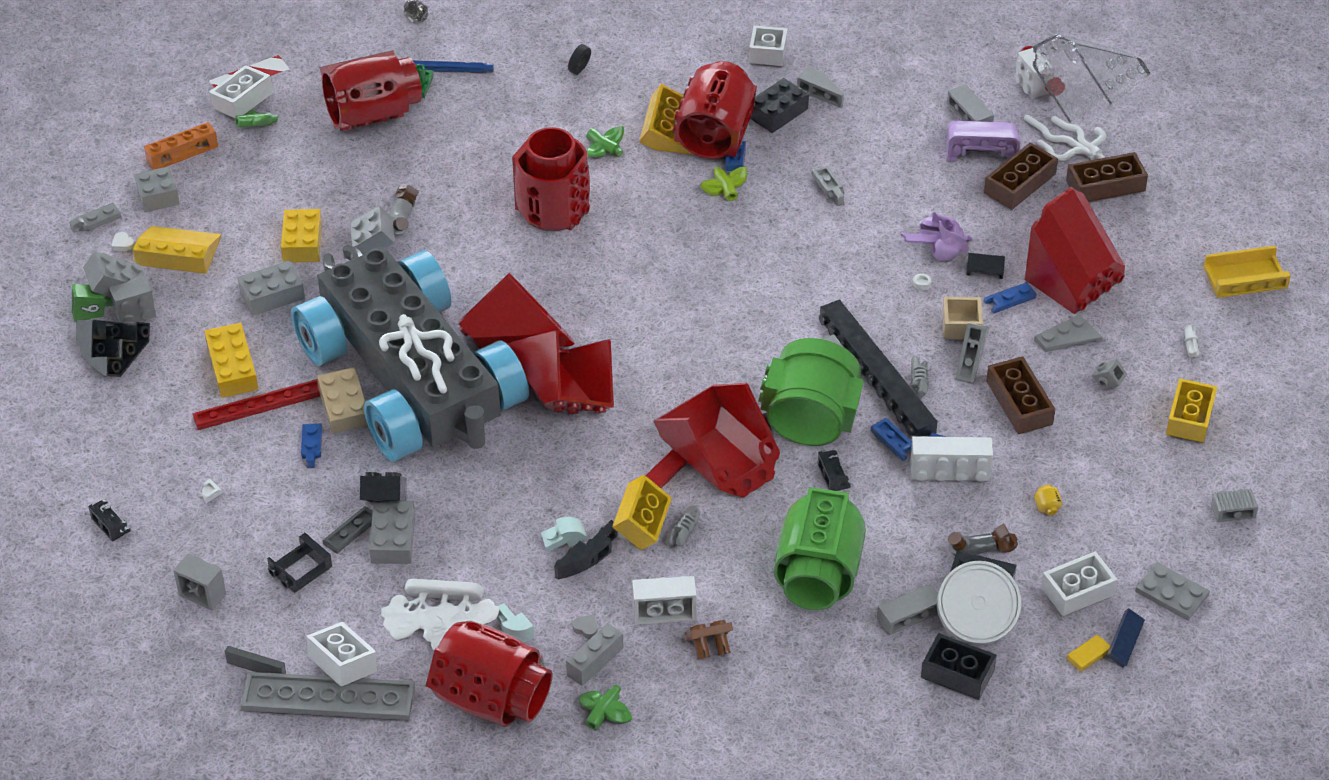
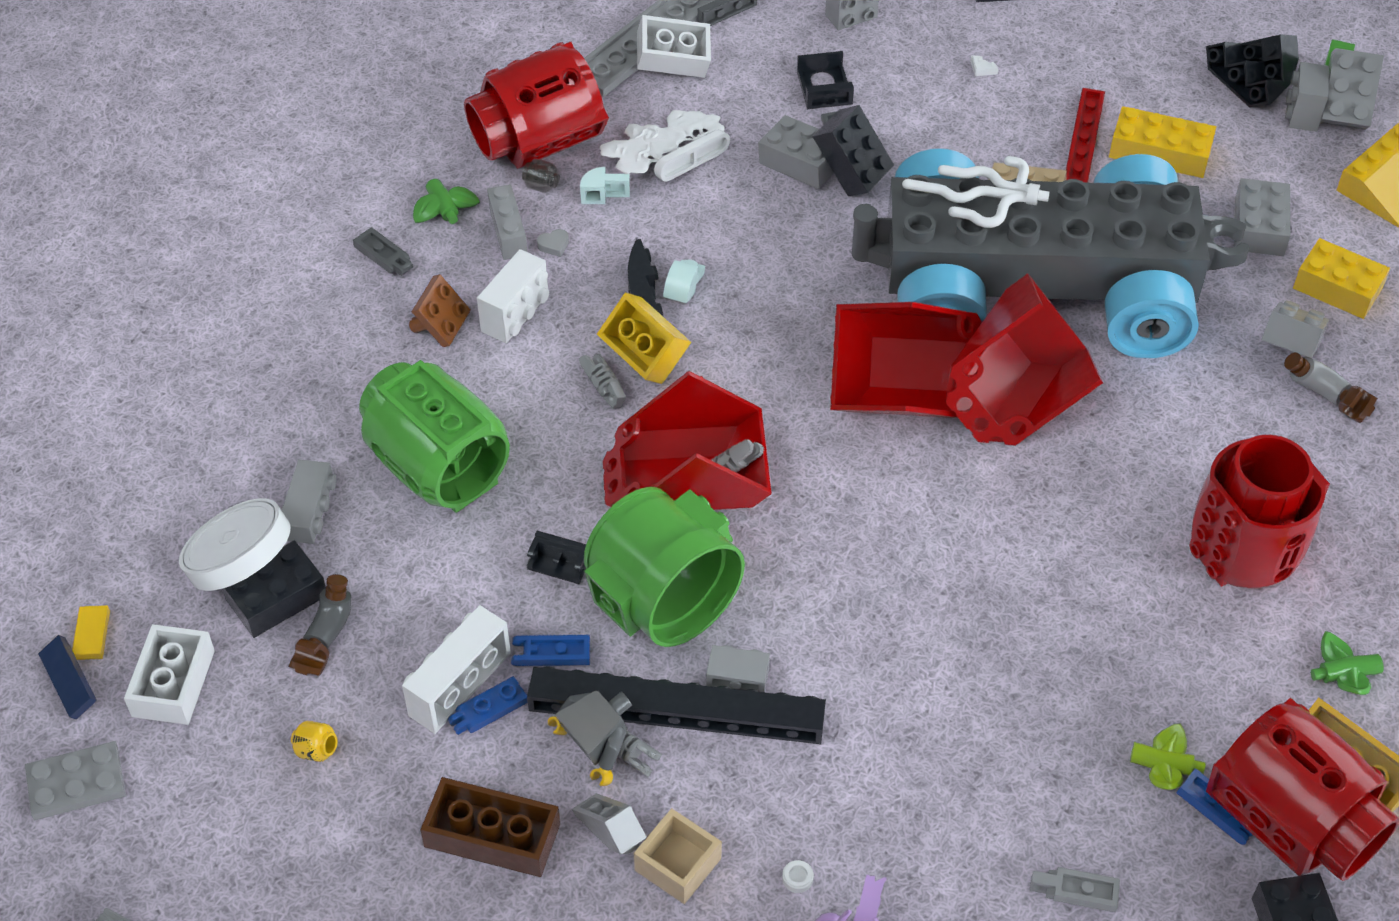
camera: 125 degrees right, 5 degrees up
(311, 443) = (979, 153): blue hinge -> none
(679, 711) = (383, 252): none -> dark grey hinge
(702, 419) = (739, 455): none -> light grey hinge
(929, 381) = (595, 728): none -> dark grey torso
(958, 666) = (190, 487): black brick -> none

